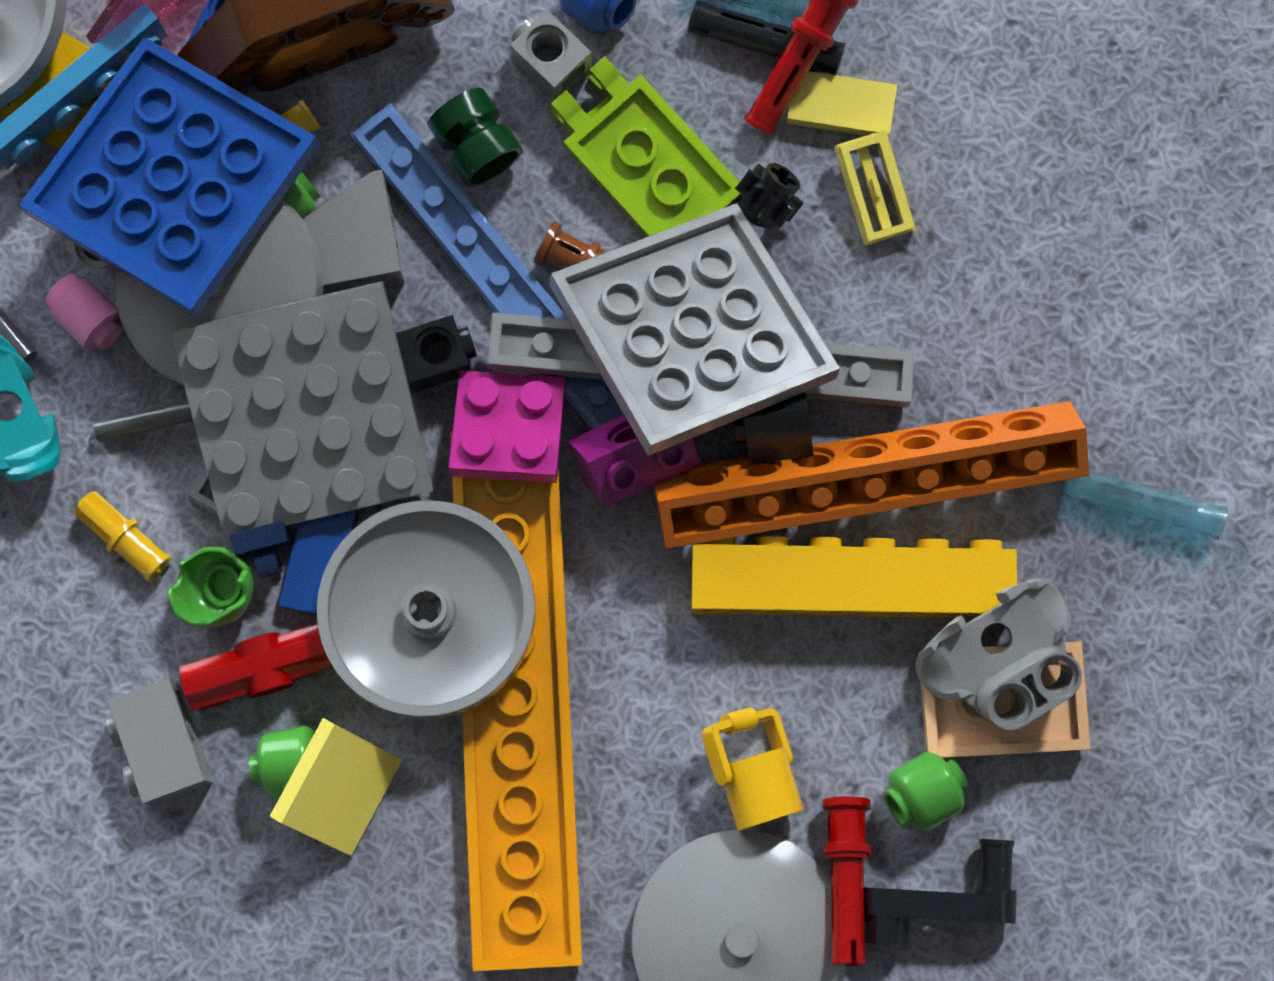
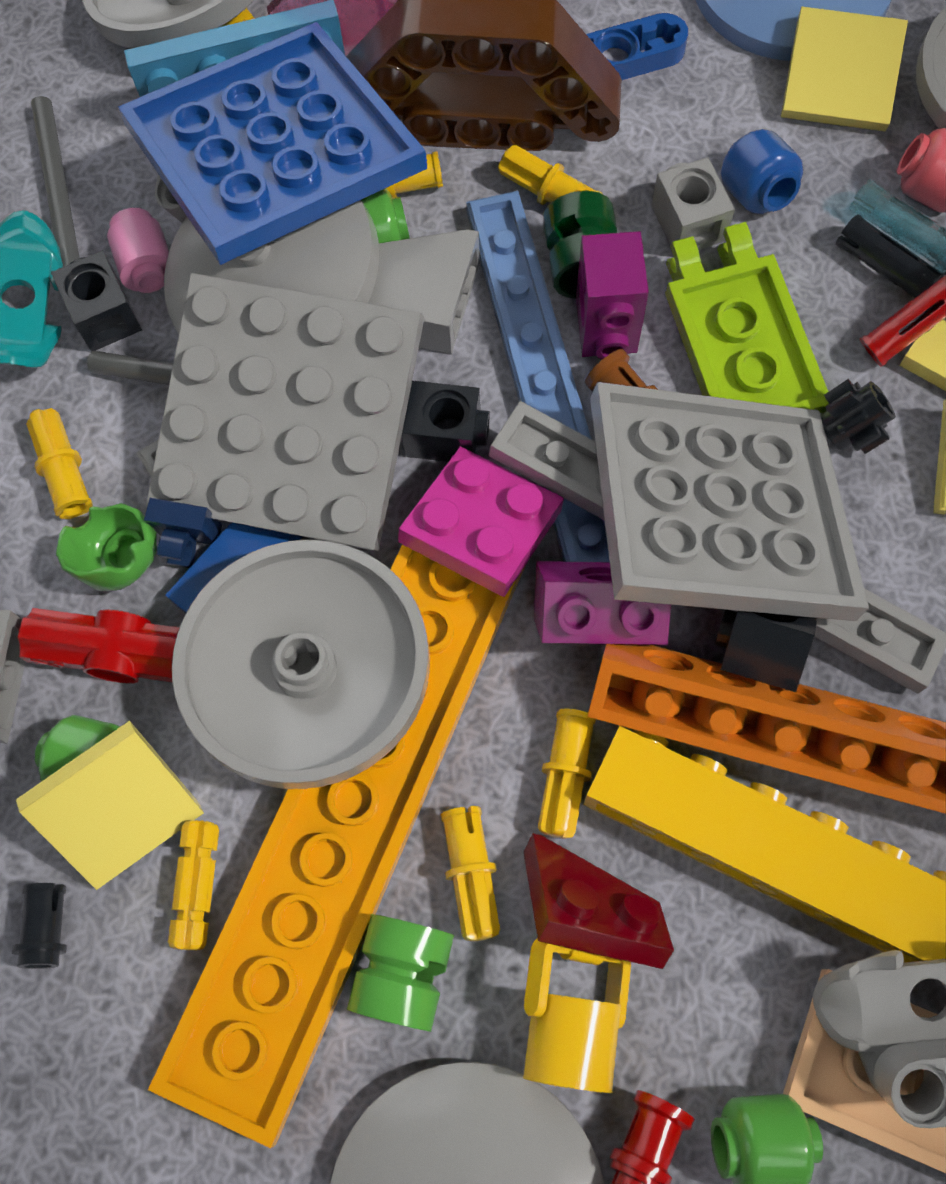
camera: 30 degrees right, 10 degrees down
(91, 389) = (101, 318): none -> black brick
(325, 901) = (41, 926): none -> black pin
(412, 83) = (538, 176): none -> yellow axle
(424, 815) = (193, 885): none -> yellow axle
(523, 182) = (611, 293): none -> magenta brick
(615, 801) = (400, 972): none -> bright green wheel
(631, 705) = (471, 873): none -> yellow axle
(667, 597) = (566, 773): none -> yellow axle
(732, 689) = (591, 909): none -> dark red wing

